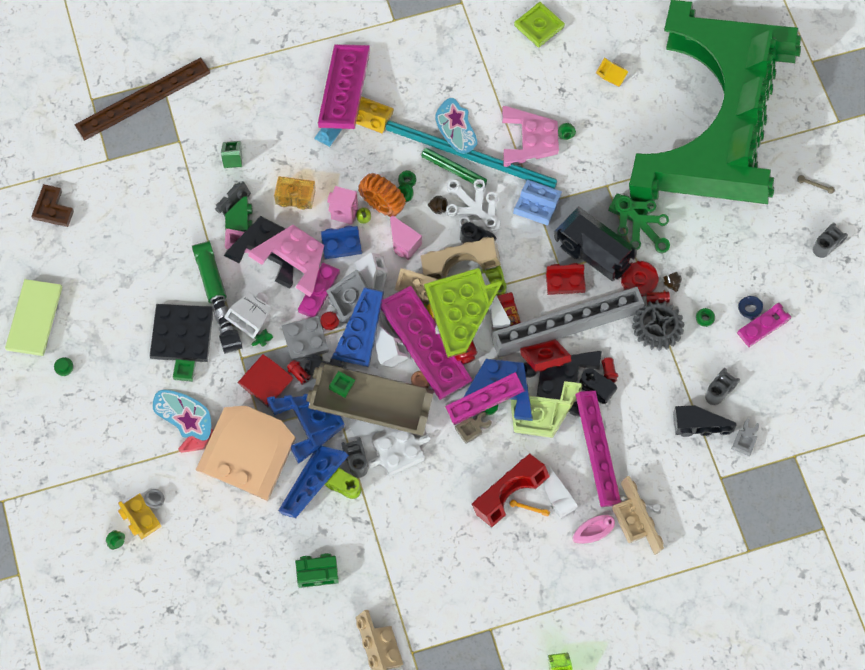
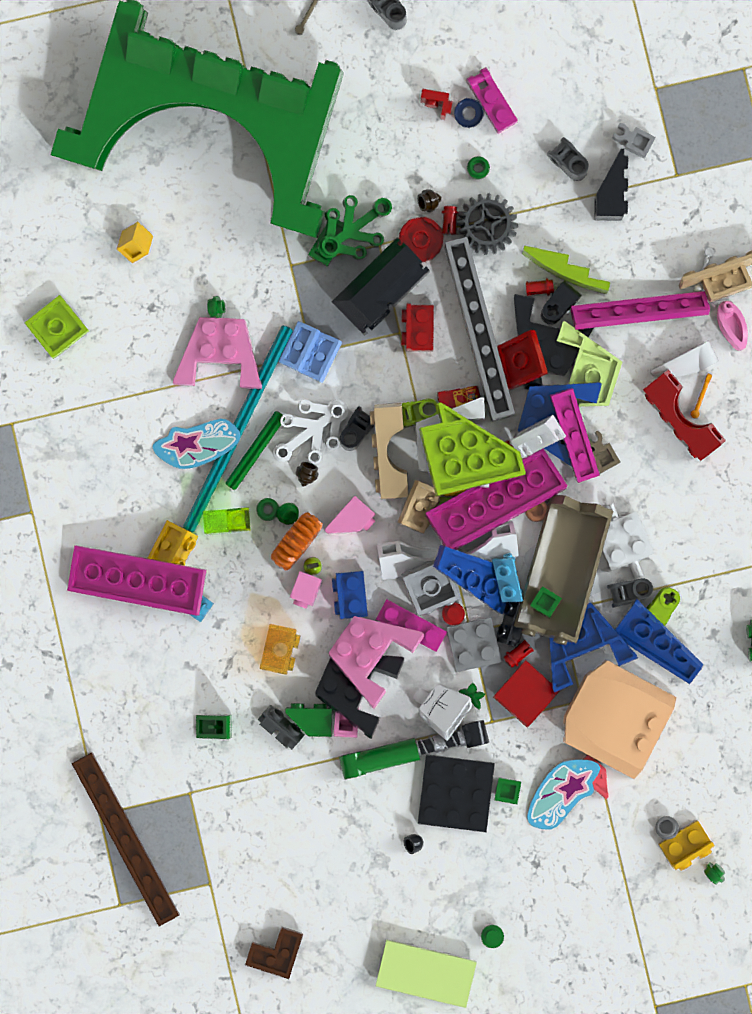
camera: 85 degrees left, 20 degrees up
(140, 302) = (413, 843): none -> black hinge
(353, 358) = (507, 579): none -> medium azure hinge
(394, 145) = (226, 521): none -> clear neon green slope
(481, 368) = (538, 436): none -> white hinge
(629, 385) = (557, 265): none -> lime slope
(757, 281) = (434, 99): none -> red bracket

